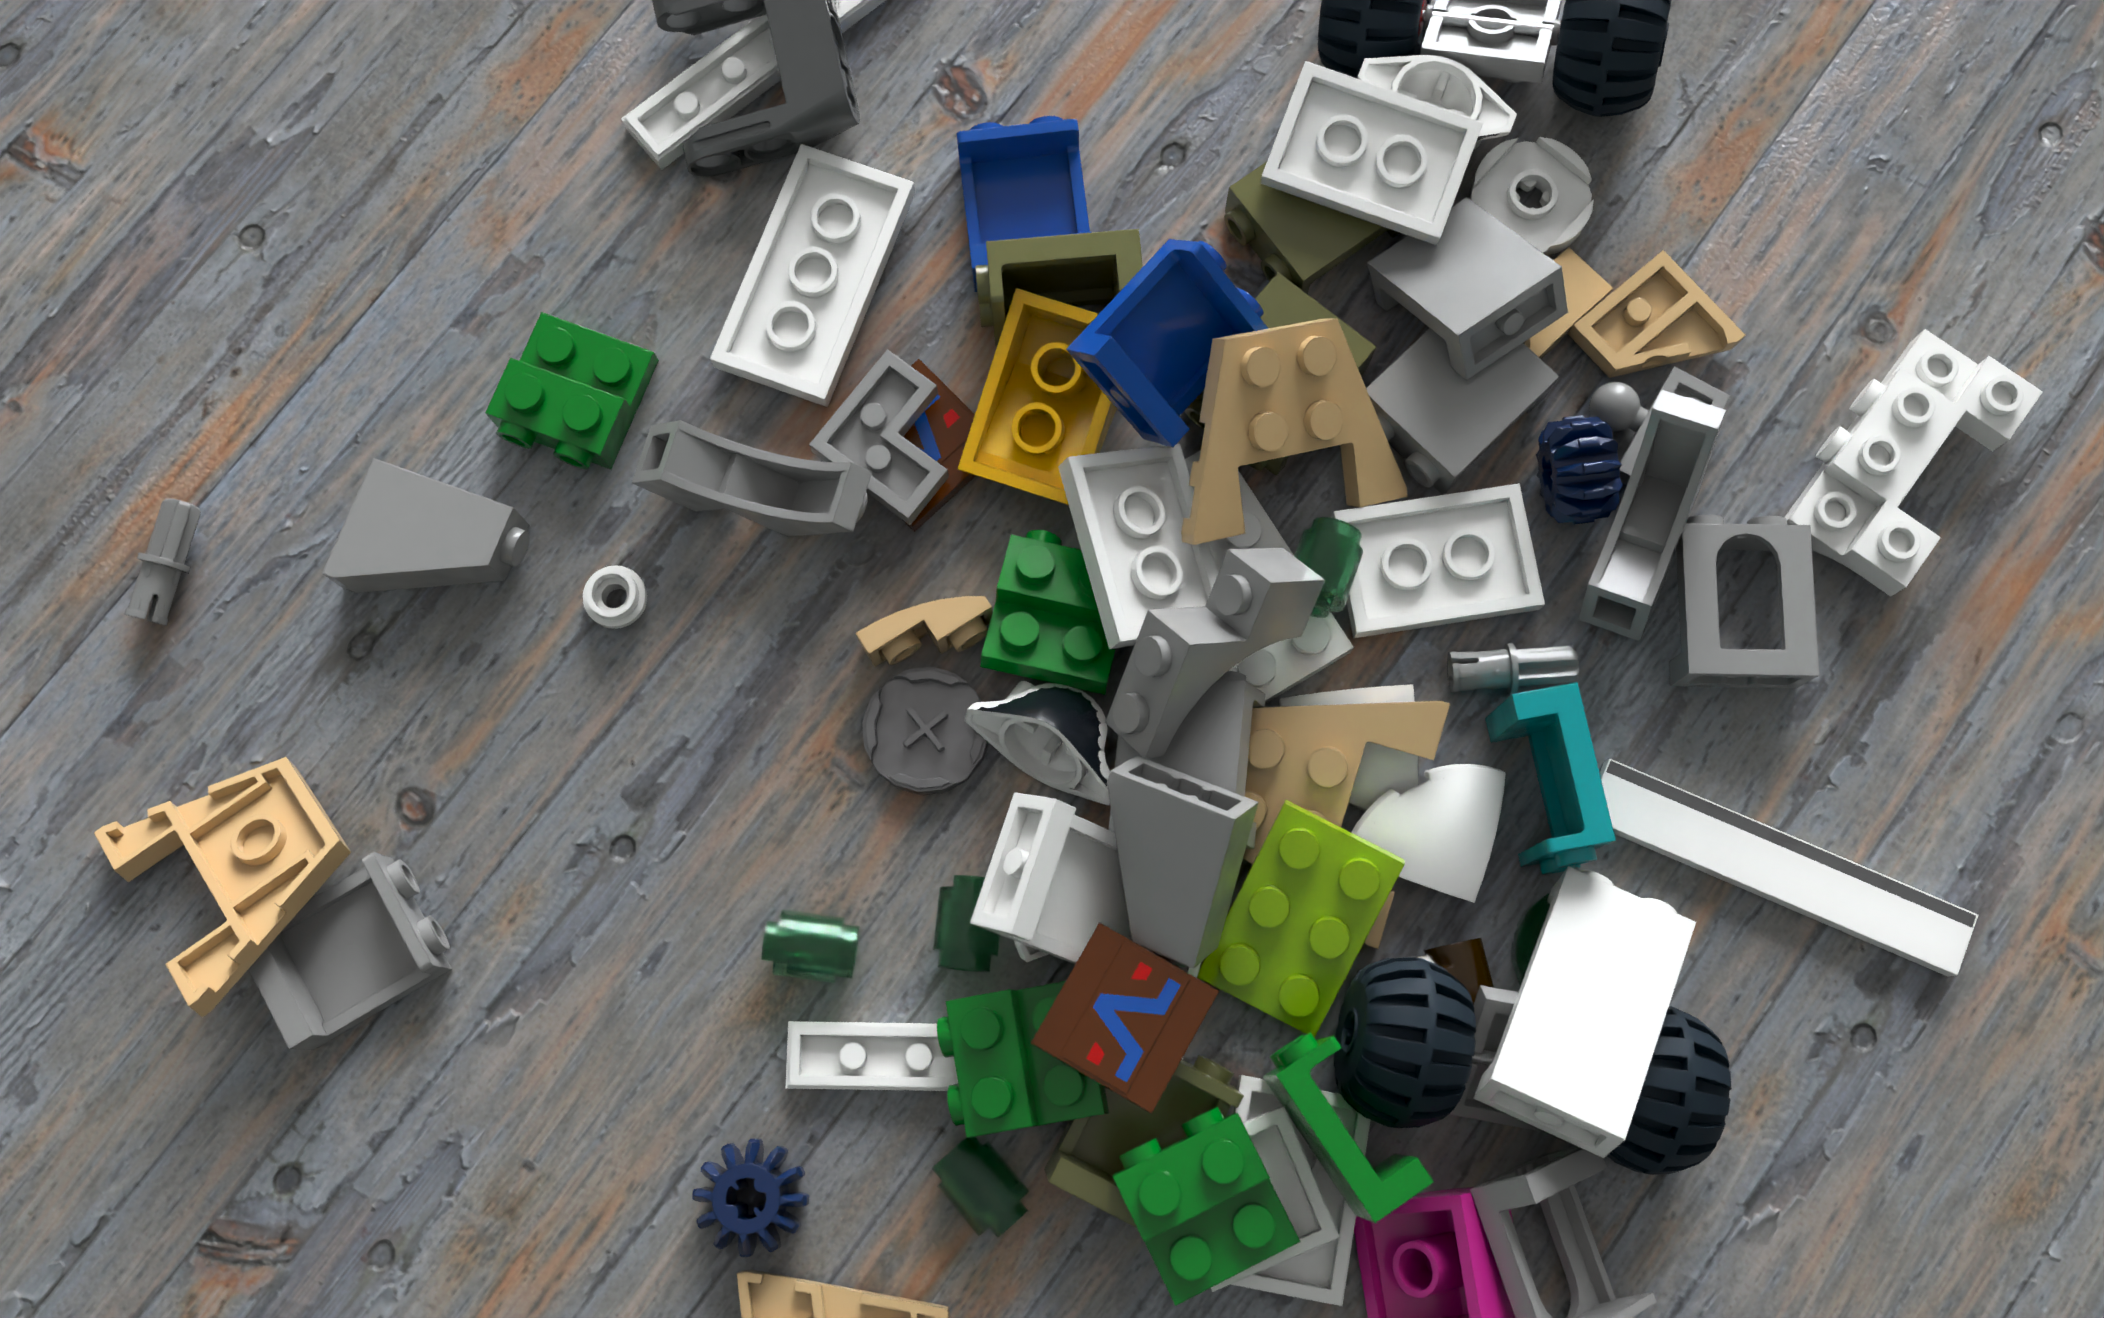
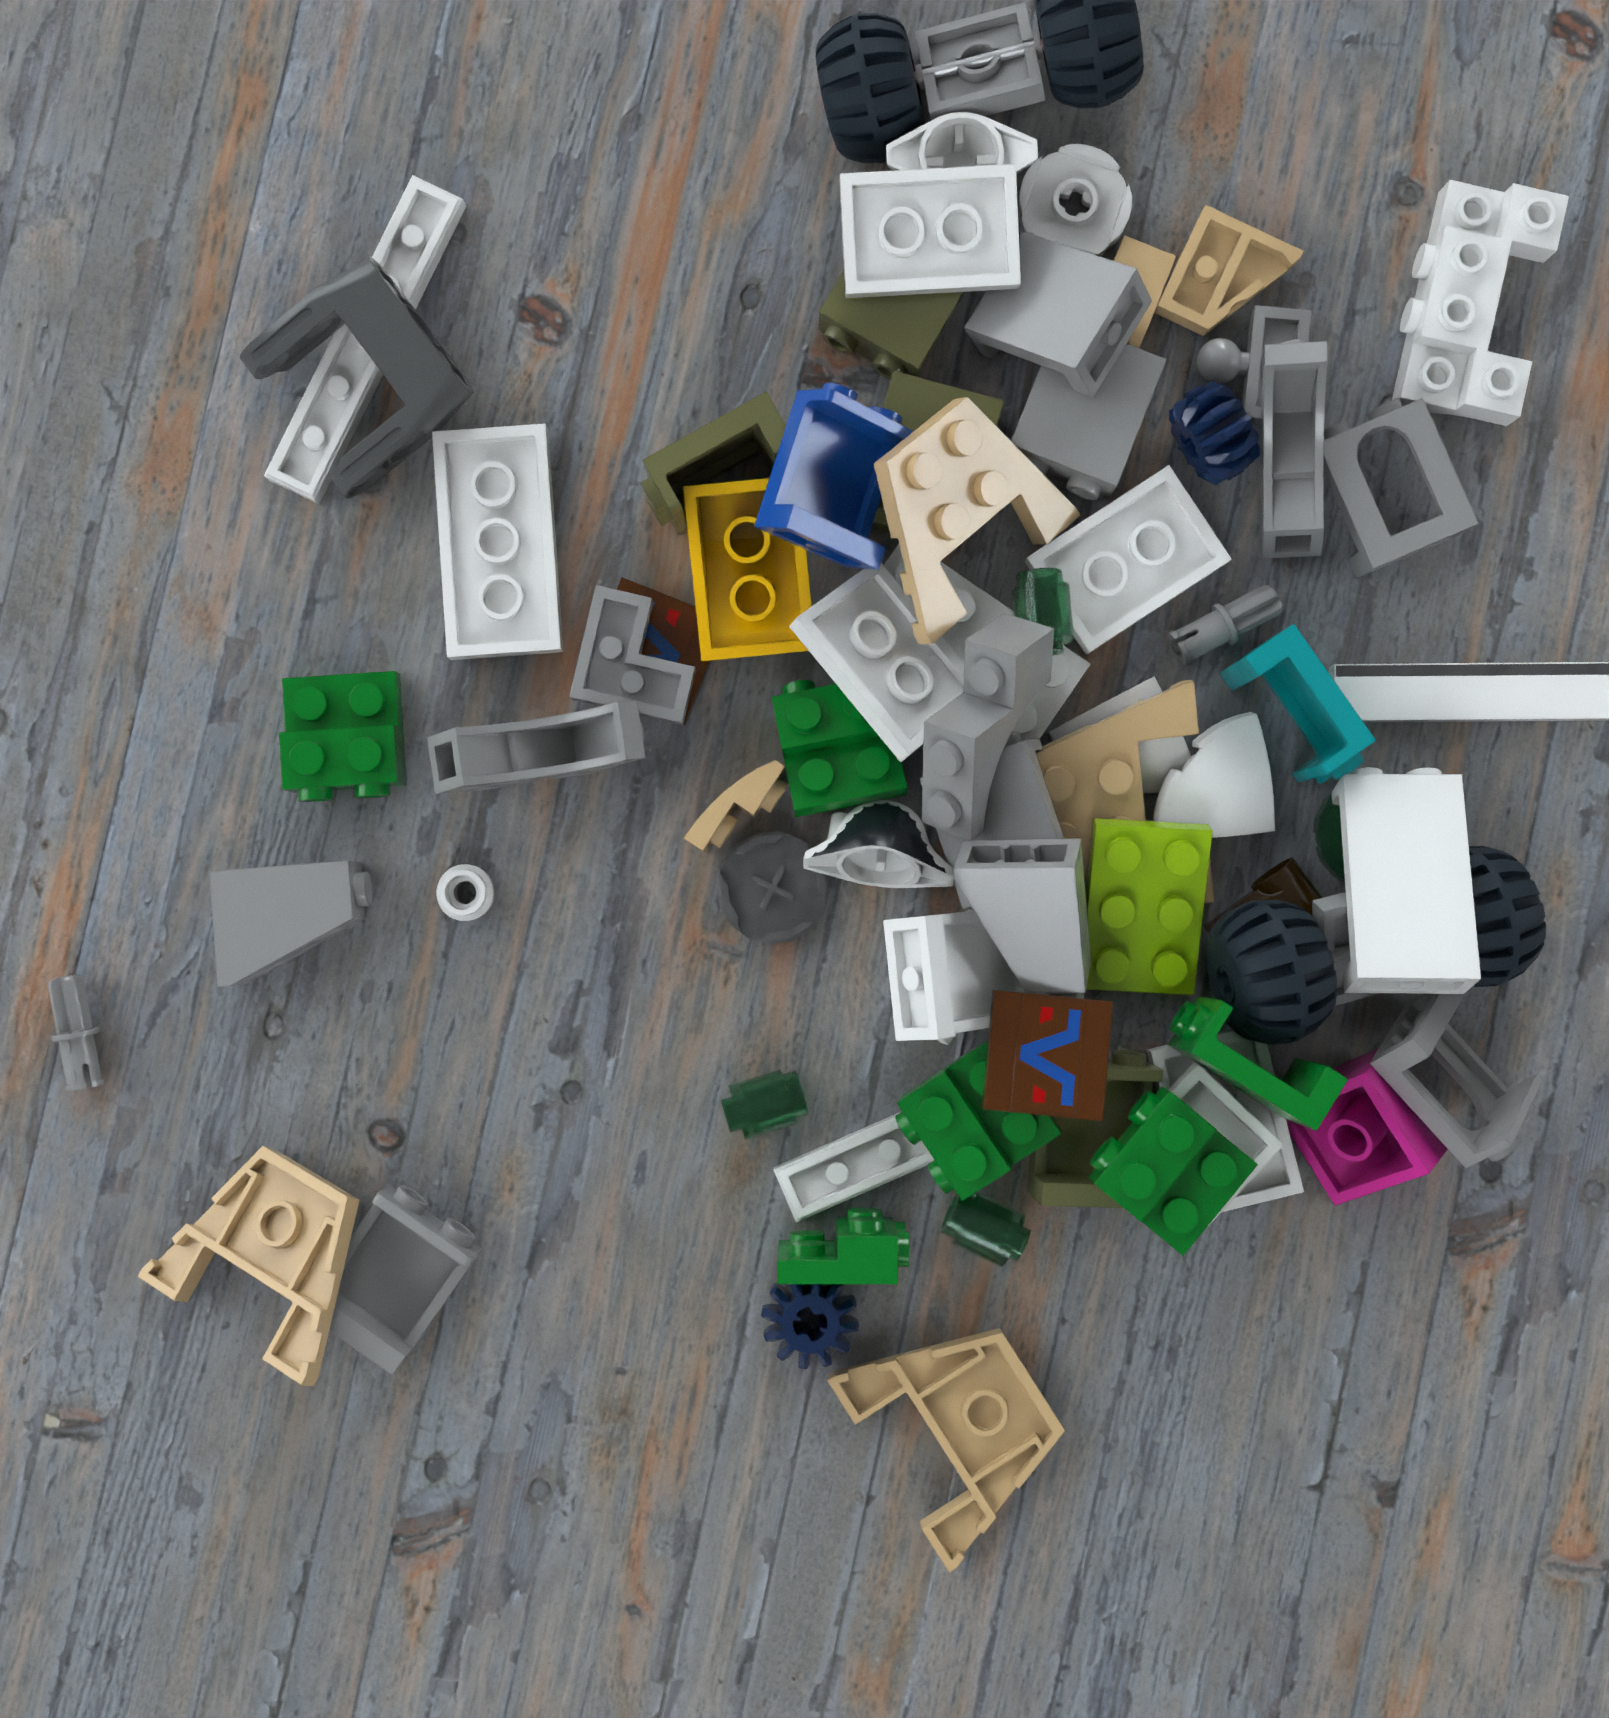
camera: 30 degrees left, 10 degrees up
(835, 1141) = (863, 1252): none -> green plate
(955, 938) = (875, 1032): clear green brick -> none
(1021, 182) = (641, 390): blue panel -> none

